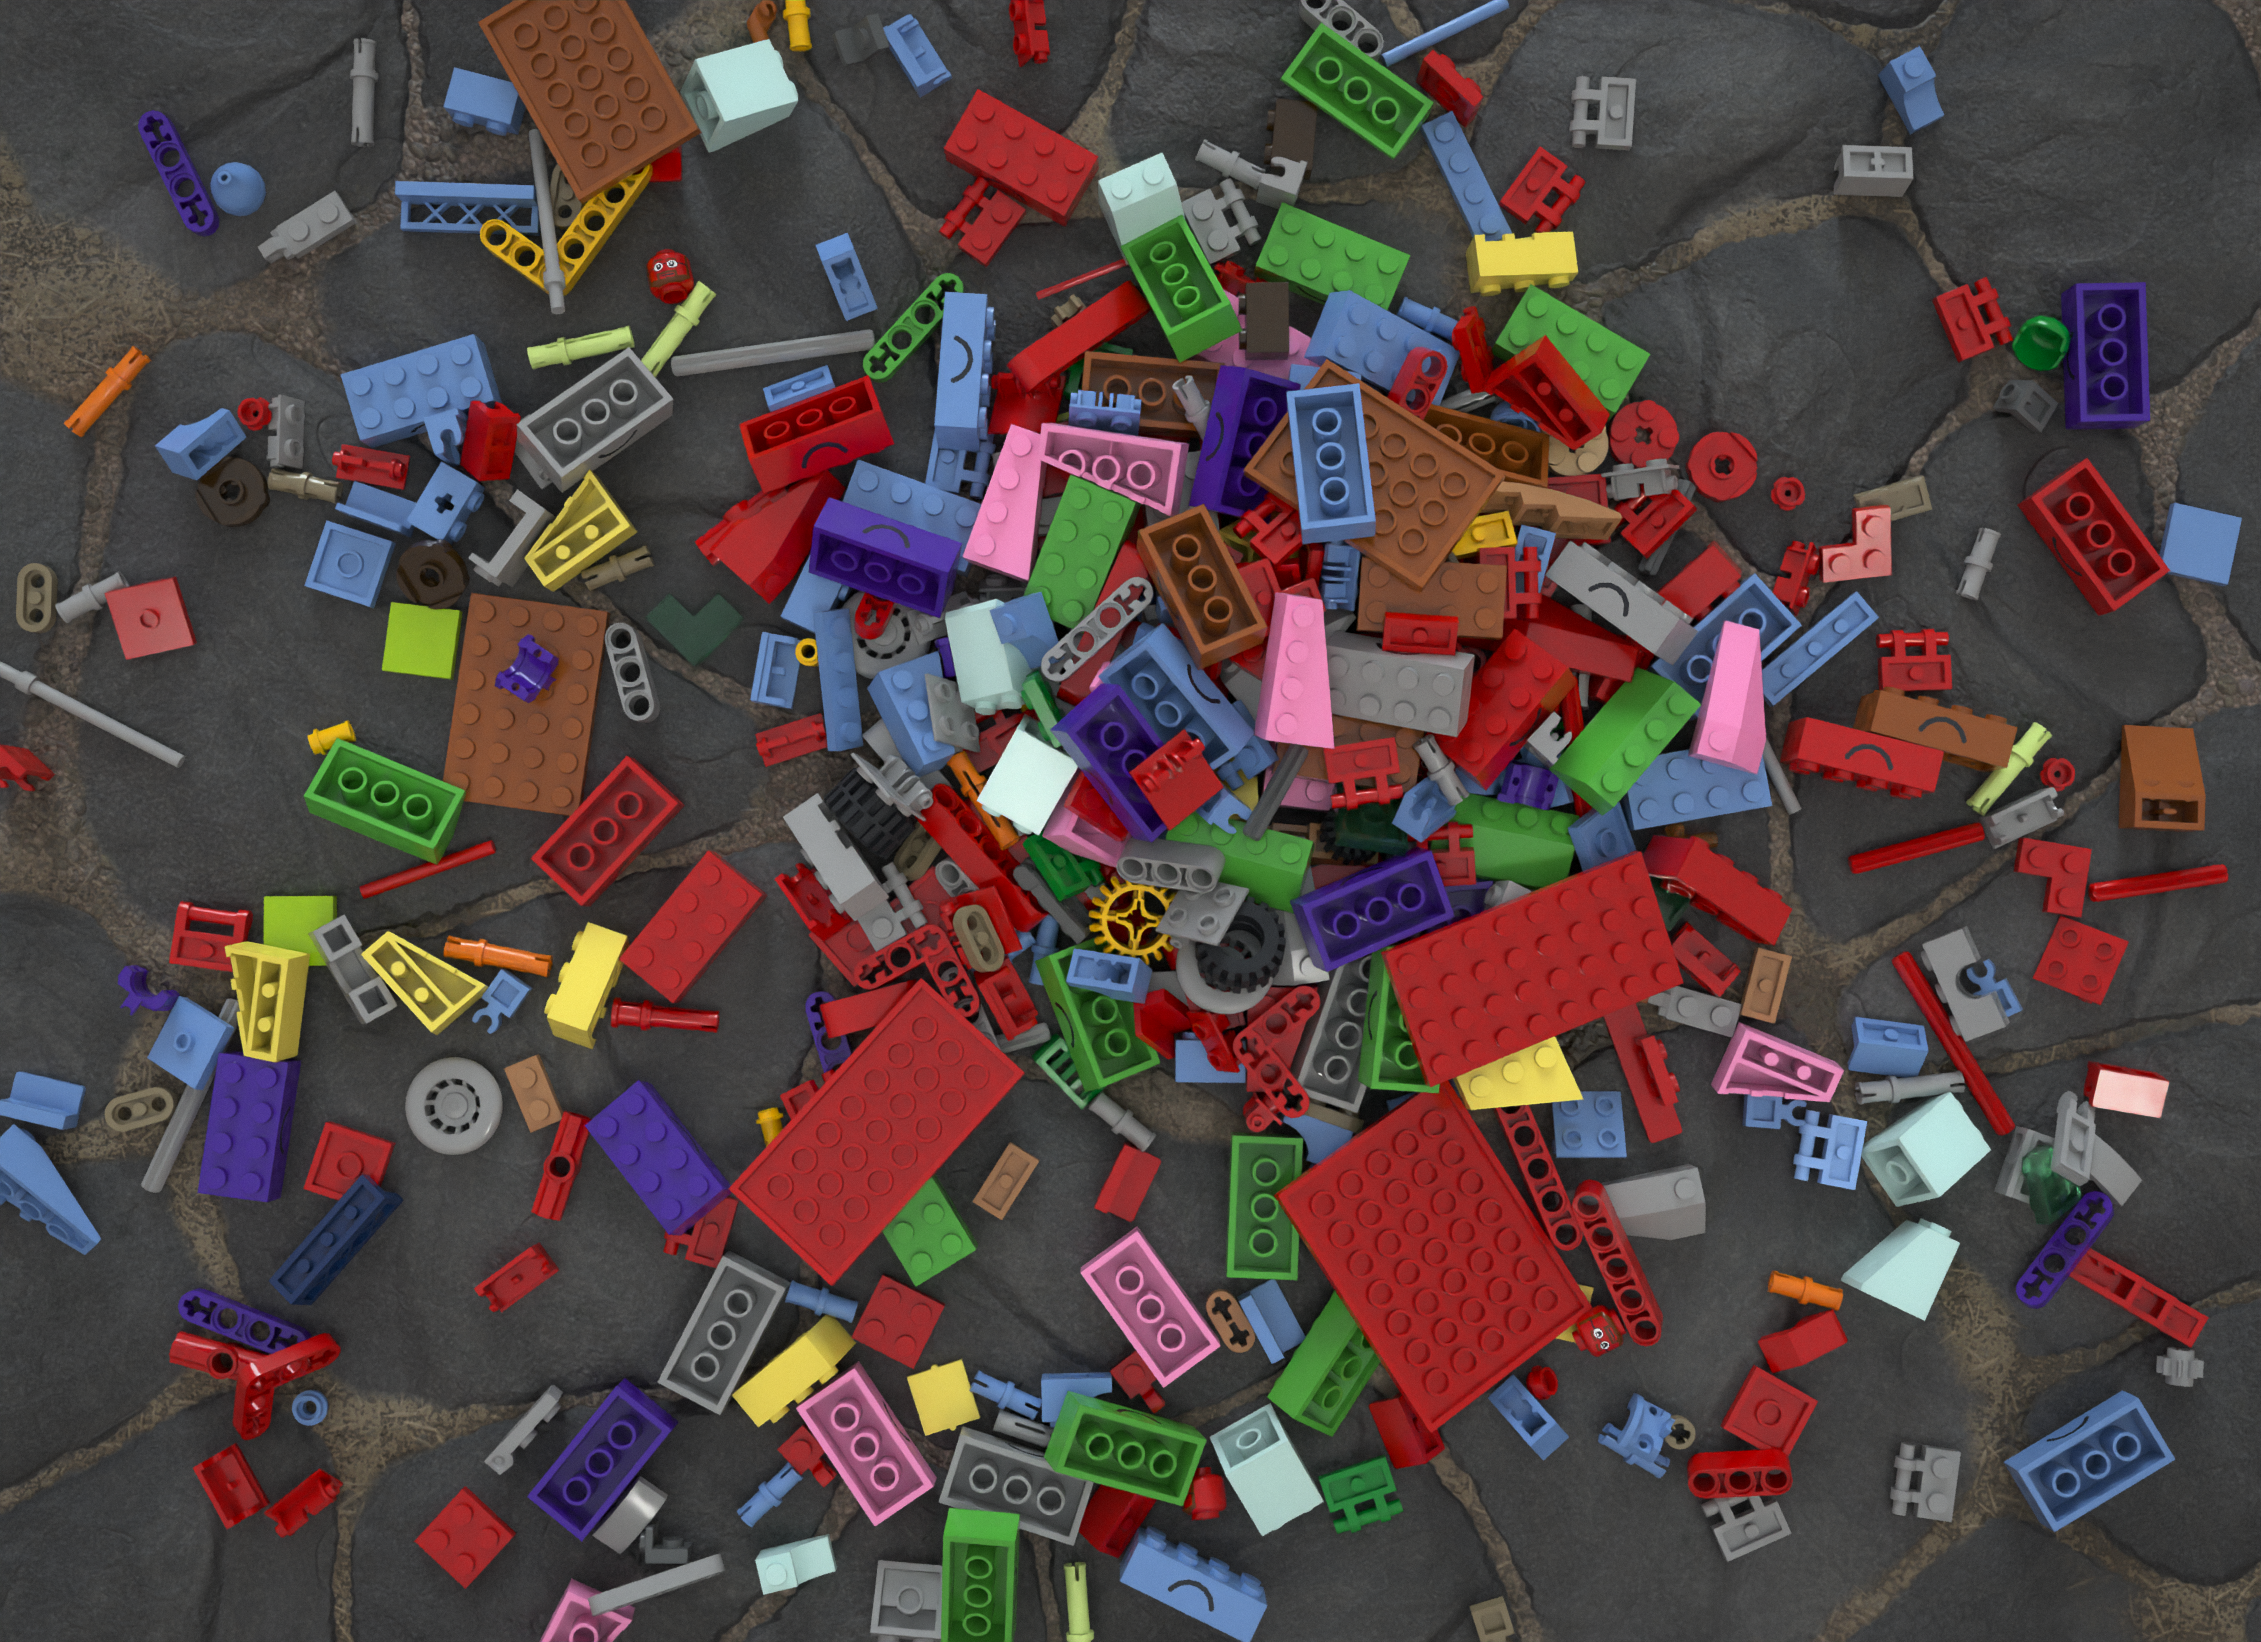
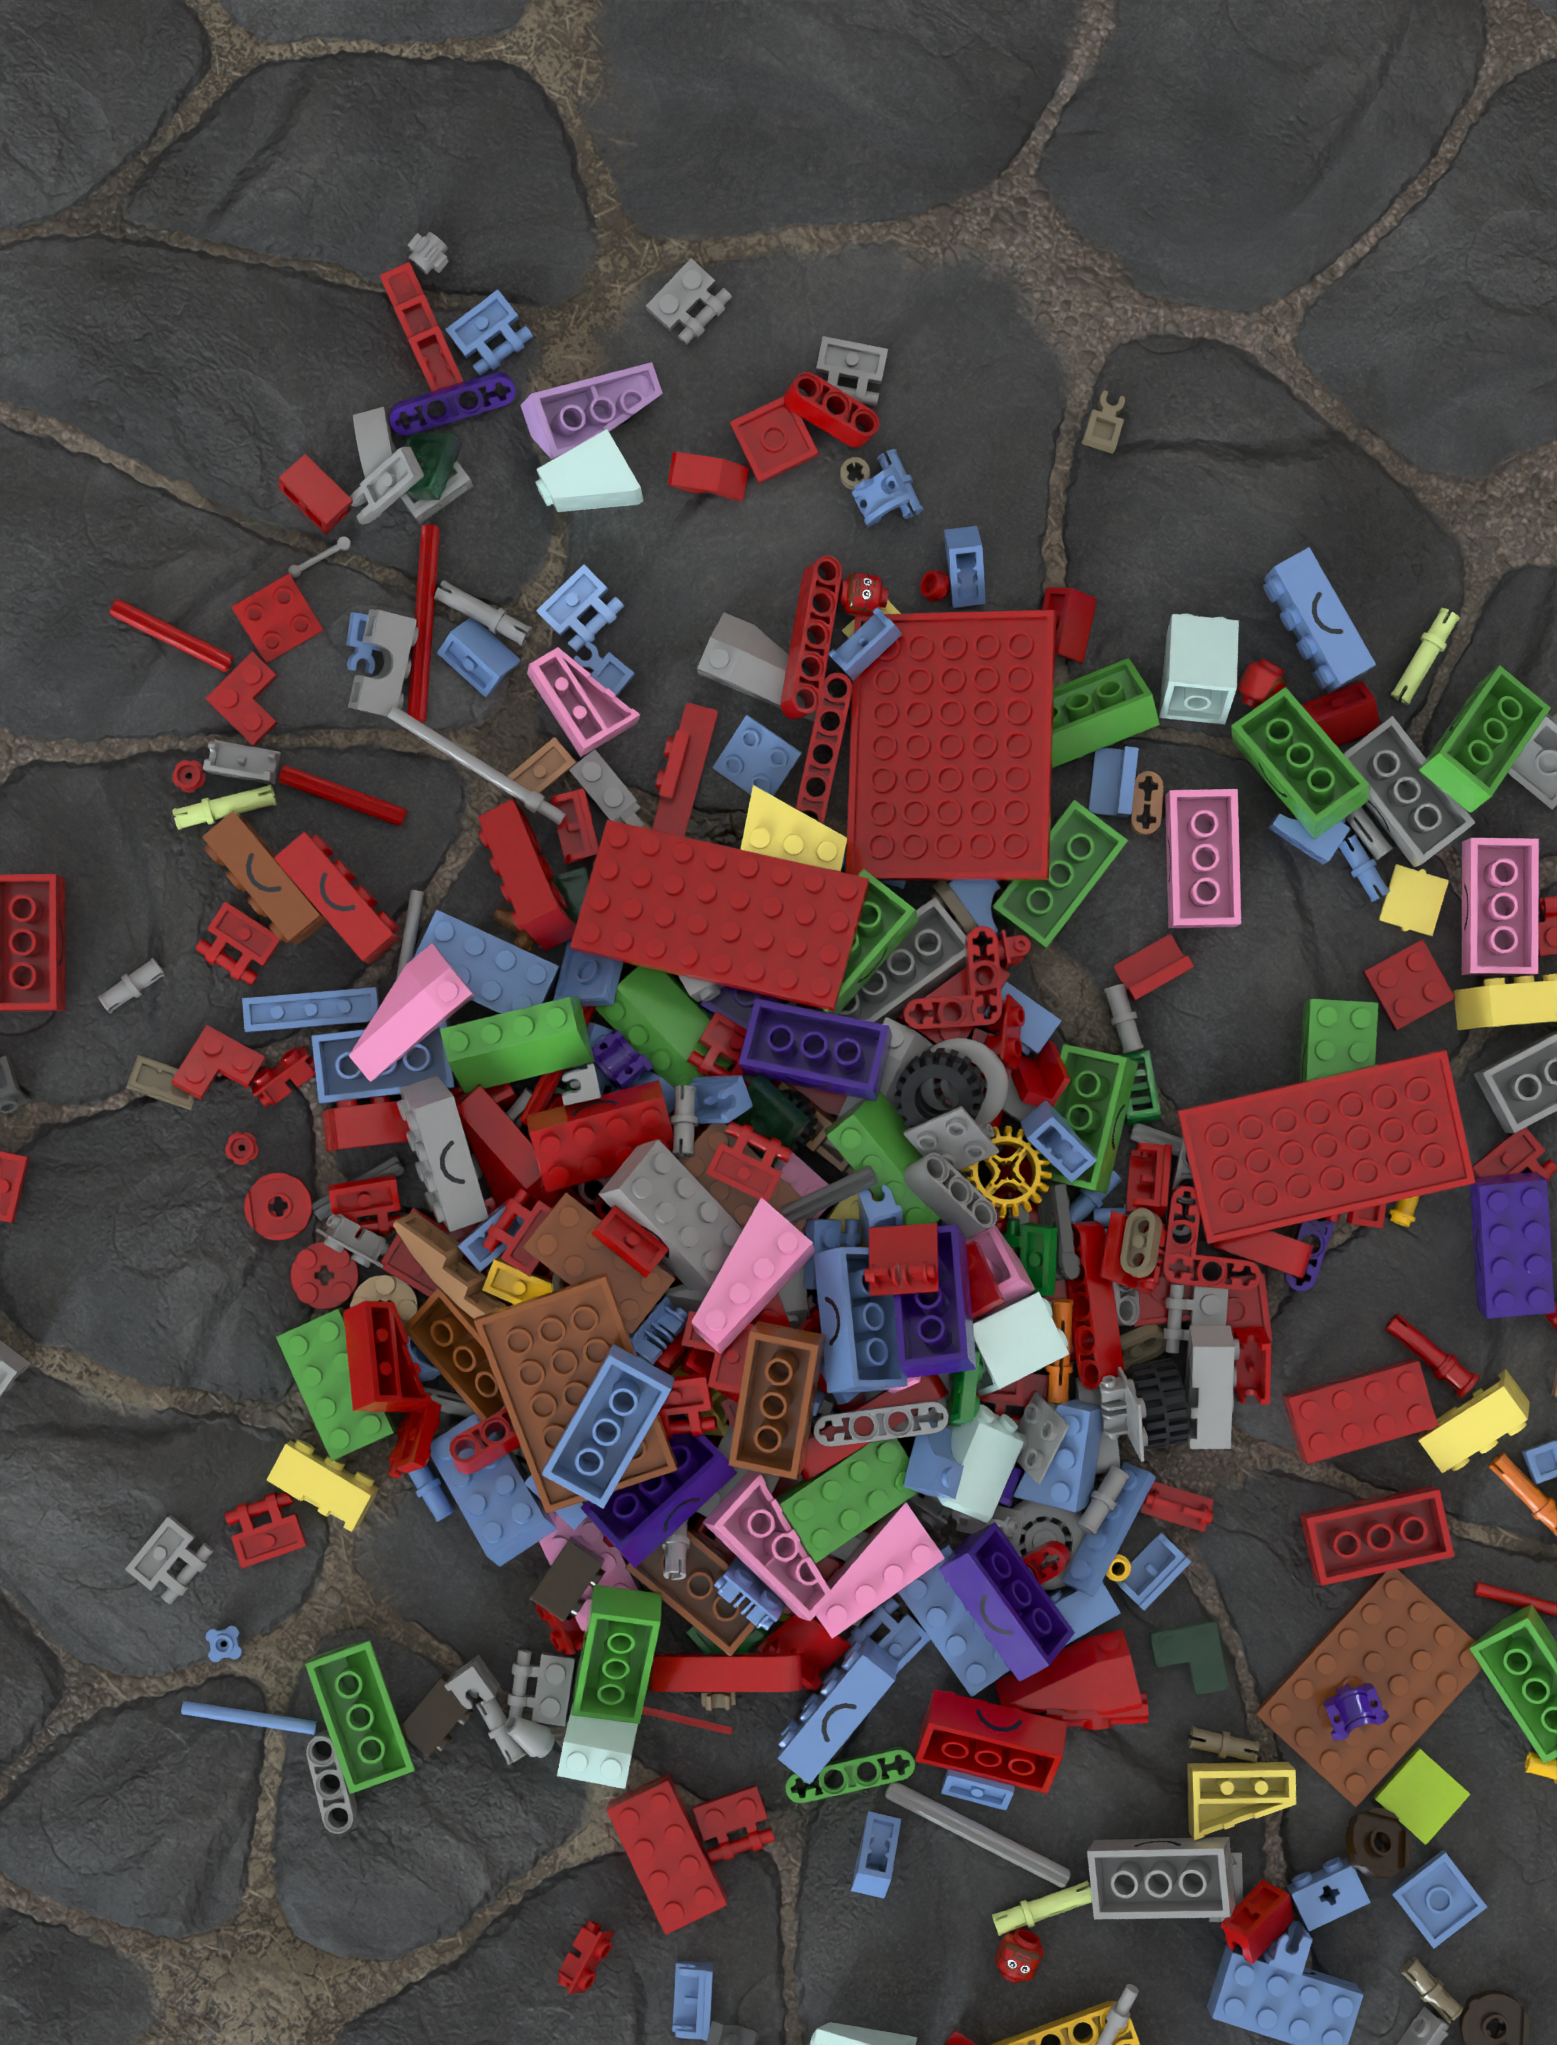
camera: 145 degrees left, 0 degrees up
(371, 466) = (1367, 1968): red hinge -> none
(378, 508) = (1384, 1929): medium blue panel -> none
(509, 561) = (1308, 1811): light grey panel -> none
(575, 348) = (1123, 1944): yellowish green pin -> none
(620, 661) = (1274, 1666): light grey beam -> none
(821, 1301) = (1459, 1042): medium blue pin -> none
(860, 699) = (1103, 1500): none -> light grey pin
(1006, 1180) = (1248, 1035): medium nougat plate -> none
(1136, 1378) = (1252, 809): red plate -> none
(1202, 175) = (531, 1736): none -> light grey cone
(1327, 258) = (478, 1593): bright green brick -> none
(1358, 1484) = (1135, 607): green plate -> none
(1449, 88) = (279, 1654): red plate -> none
(1464, 177) = (319, 1583): medium blue plate -> none
(1504, 84) = (229, 1635): none -> medium blue plate
(1567, 1289) = (866, 644): none -> medium blue hinge
(1755, 955) = (533, 800): none -> light grey bar
(1805, 1290) = (677, 513): orange pin -> none
(1925, 1151) = (507, 556): light aqua slope -> none
(1956, 1321) = (580, 410): none -> lavender wedge
(2069, 1063) = (342, 544): none -> light grey hinge
(2087, 1336) = (482, 325): none -> medium blue plate
(2089, 1460) = (551, 231): medium blue brick -> none
(2160, 780) = (111, 715): dark orange slope -> none

